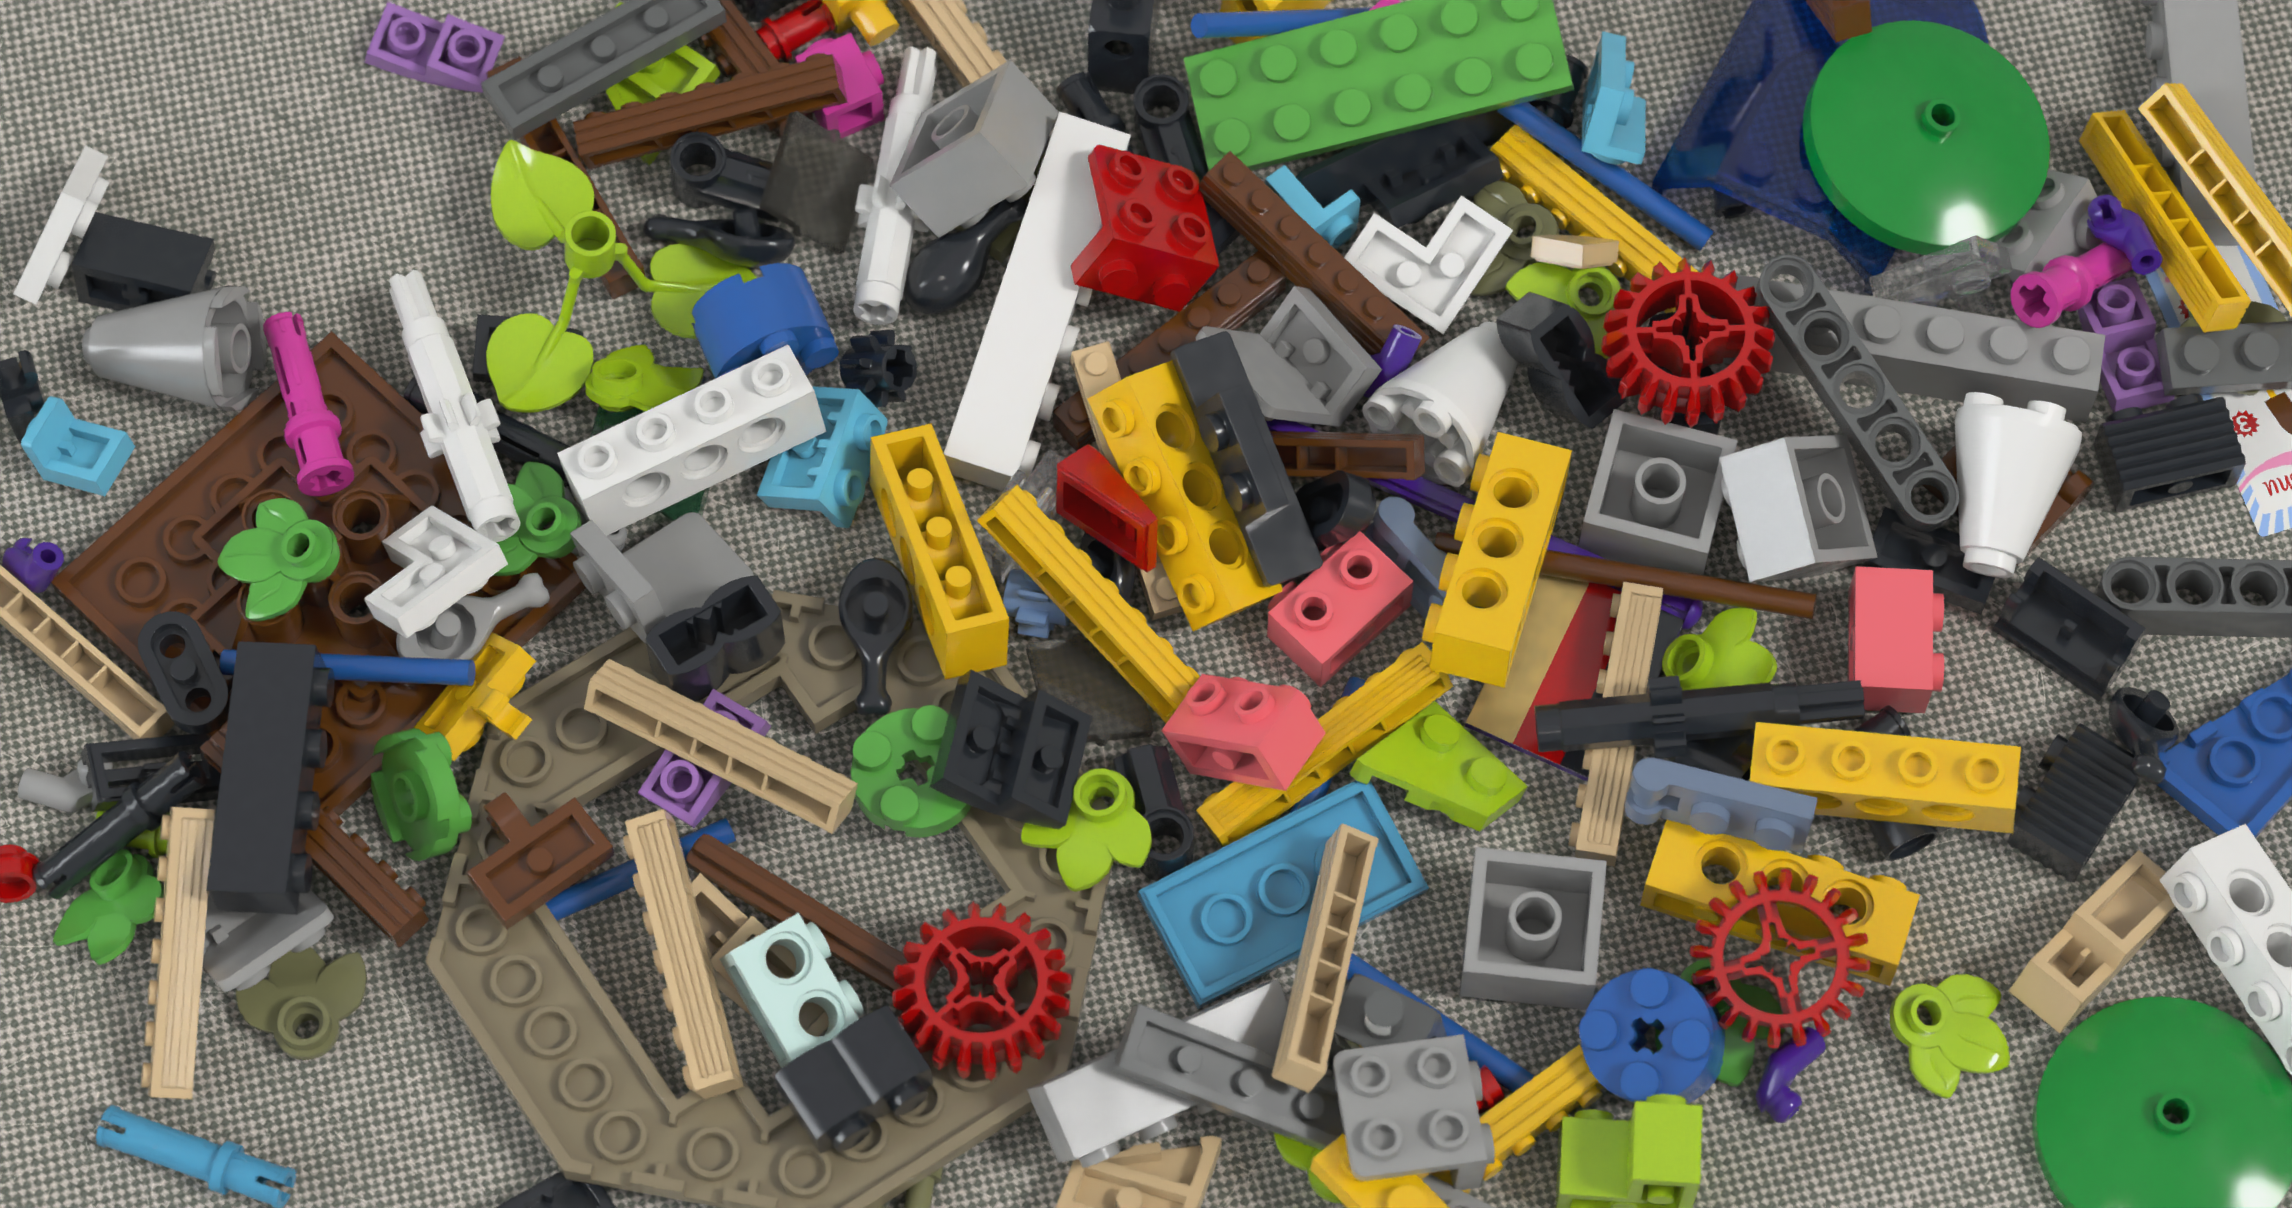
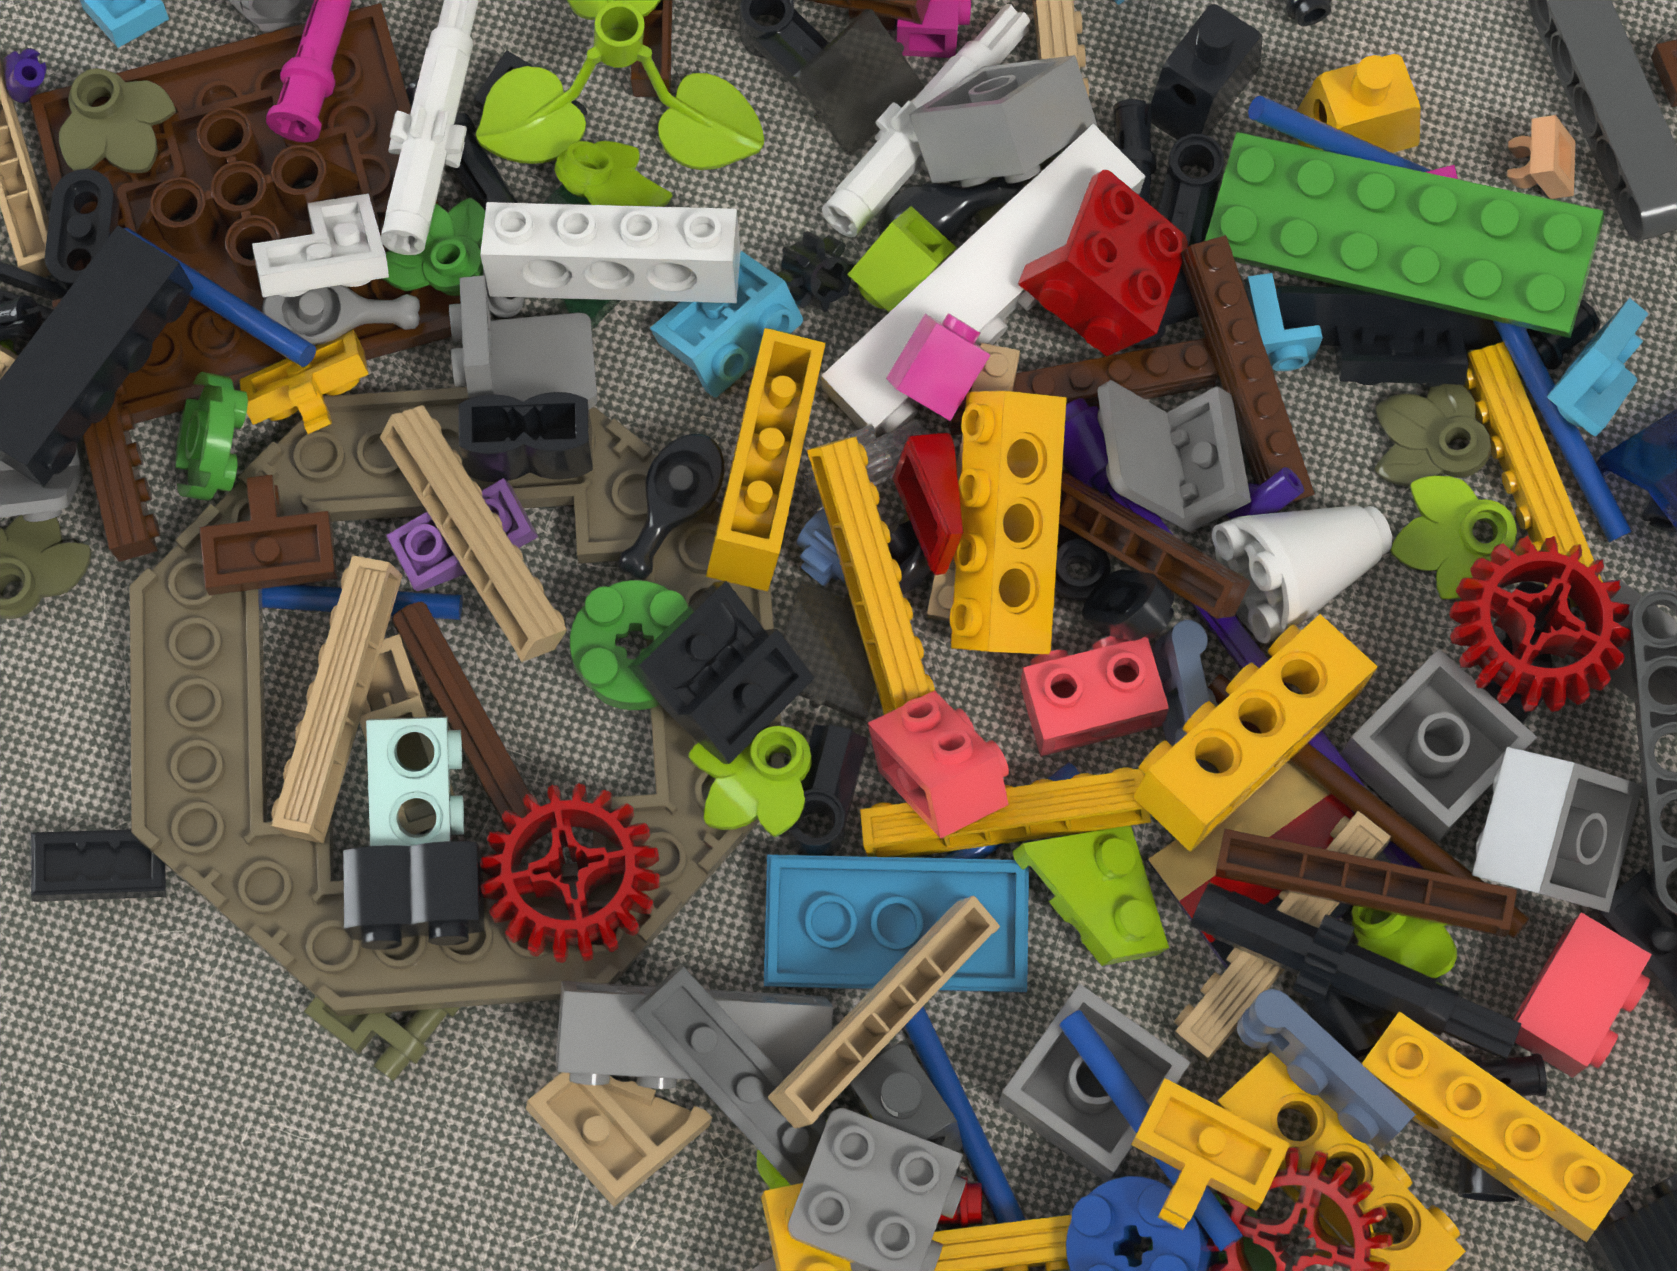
camera: 30 degrees right, 5 degrees up
(159, 567) = (117, 129): none -> olive plate
(272, 557) = (206, 172): bright green plate -> none
(734, 240) = (761, 96): black piece -> none
(753, 318) = (738, 174): blue brick -> none
(952, 321) = (900, 260): none -> lime brick
(1049, 387) = (939, 364): none -> dark pink brick
(1246, 459) = (1076, 520): black bracket -> none
(1434, 278) = (1352, 443): white plate -> none
(1559, 359) = (1417, 575): black brick -> none
(1574, 251) = (1490, 484): tan tile -> none
(1606, 930) = (1134, 1108): none -> blue bar
(1665, 635) = (1366, 883): none -> reddish brown piece
(1666, 914) = (1208, 1149): none -> yellow plate

